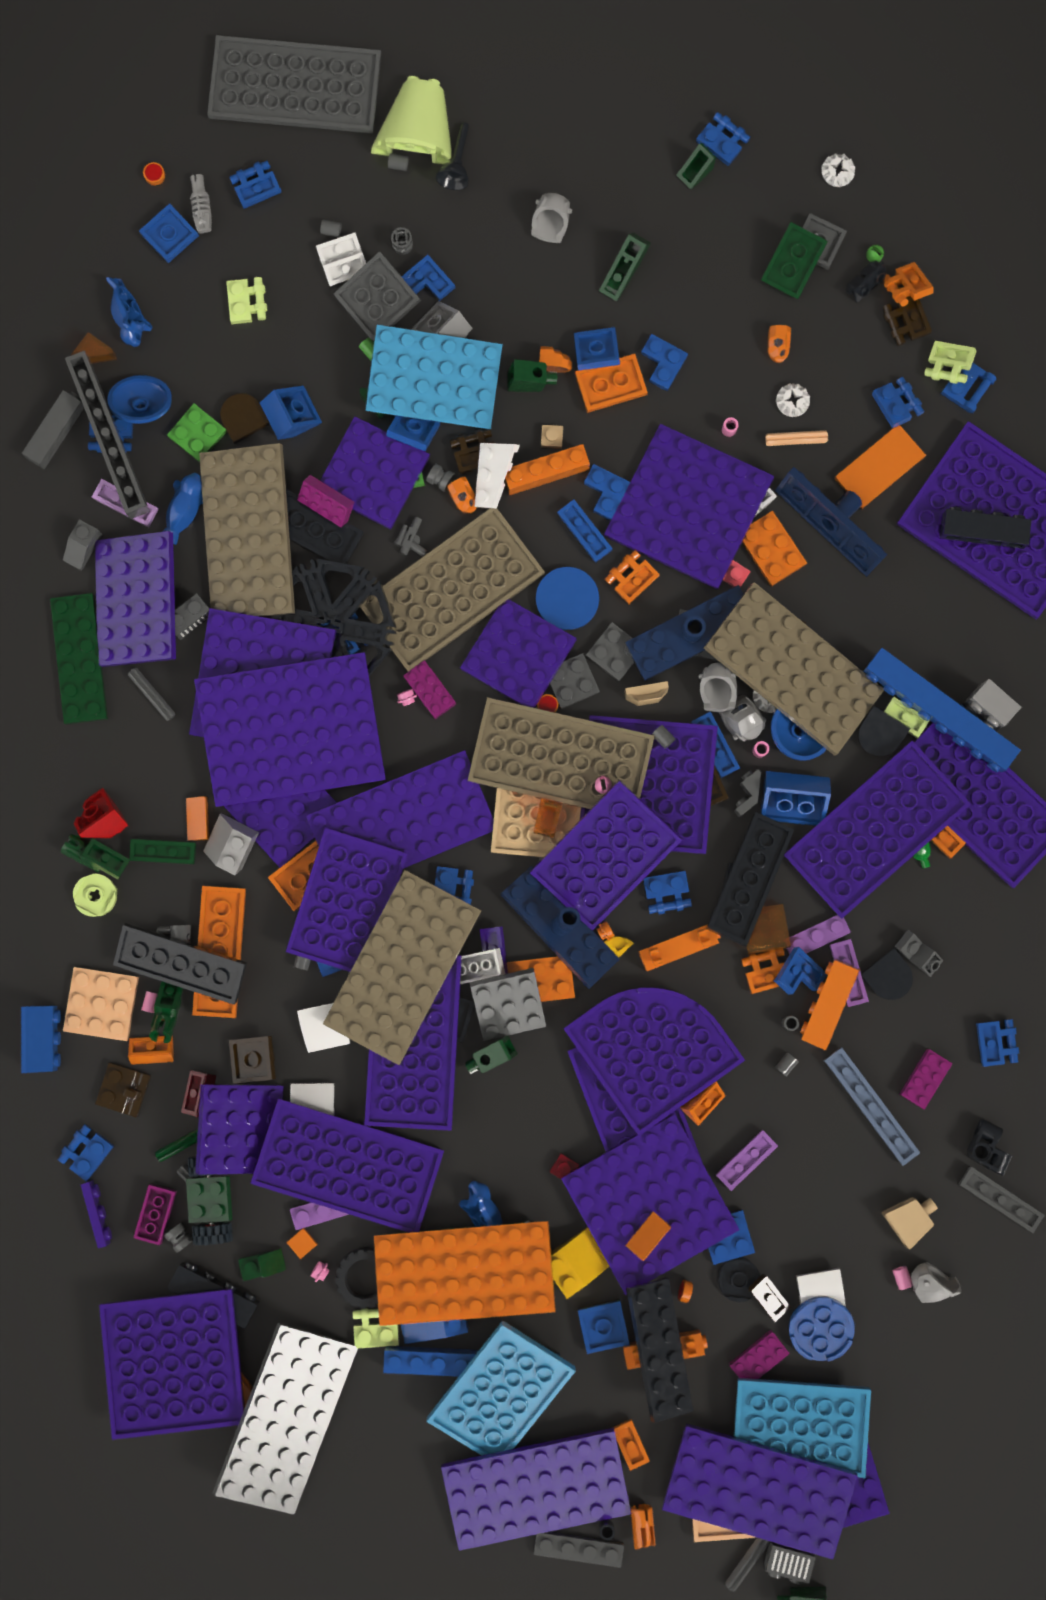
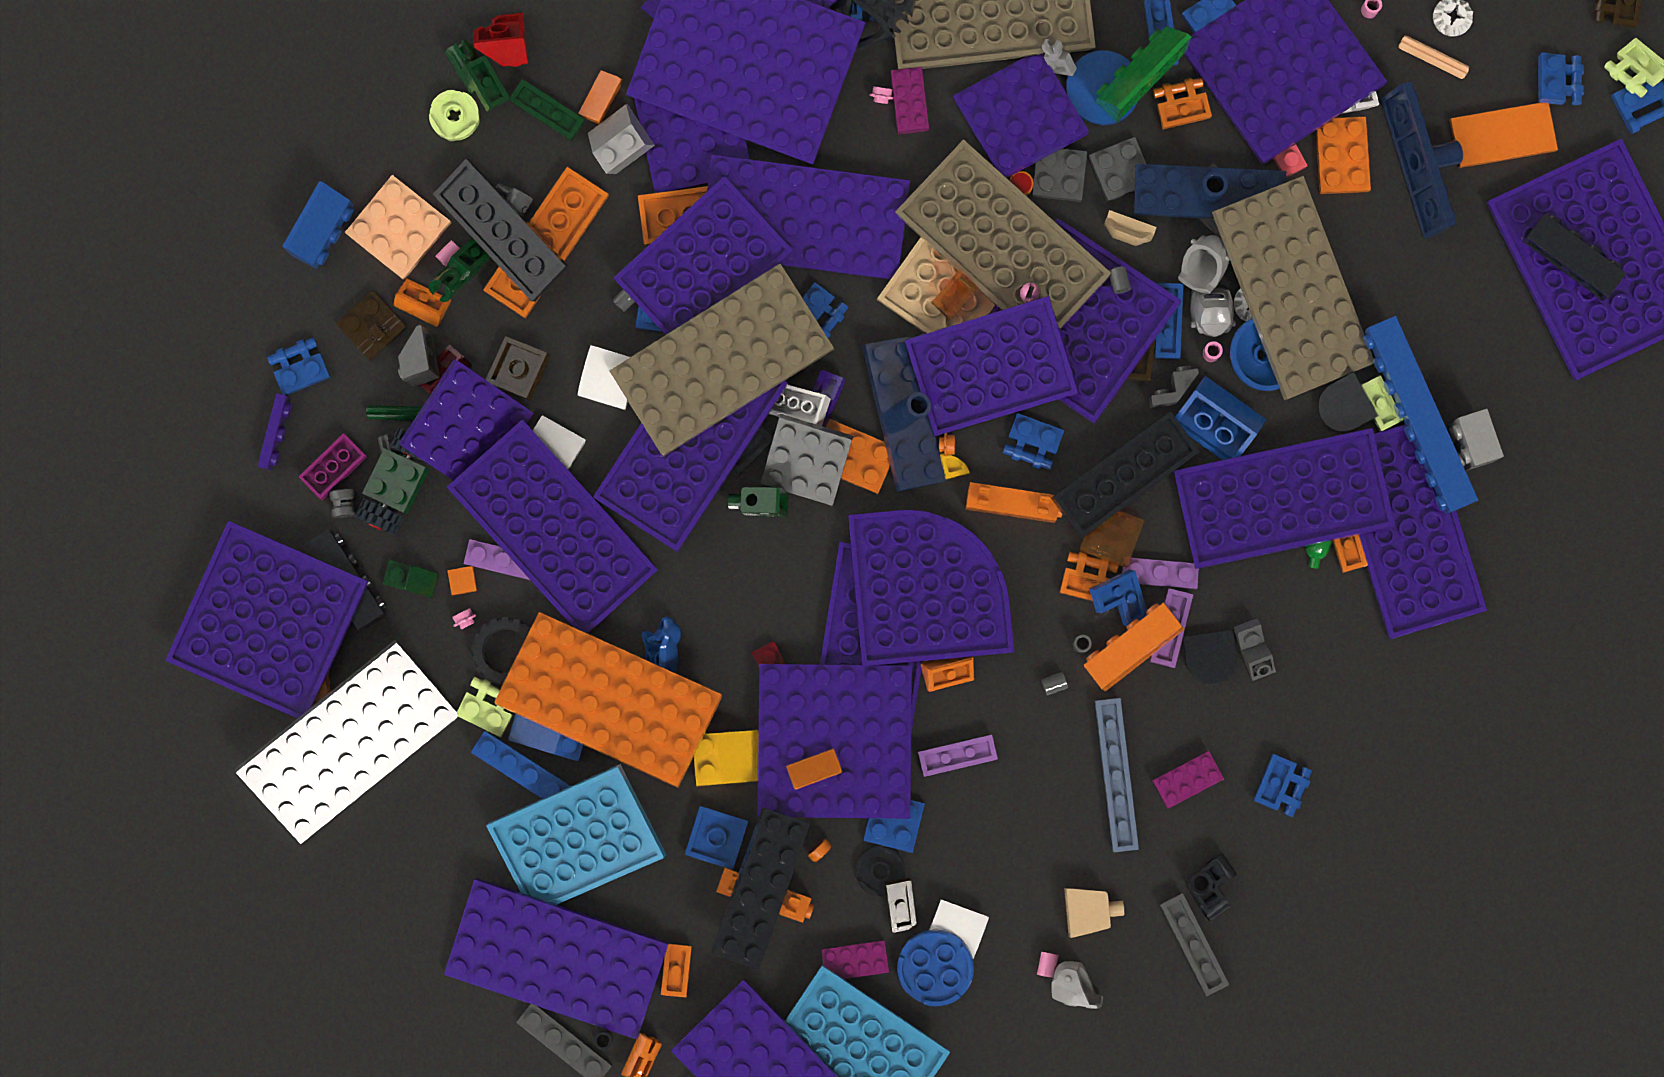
camera: 30 degrees right, 0 degrees up
(173, 1095) = (419, 358): none -> dark grey slope
(522, 596) = (1058, 59): none -> light grey plate
(591, 571) = (1143, 72): none -> green slope

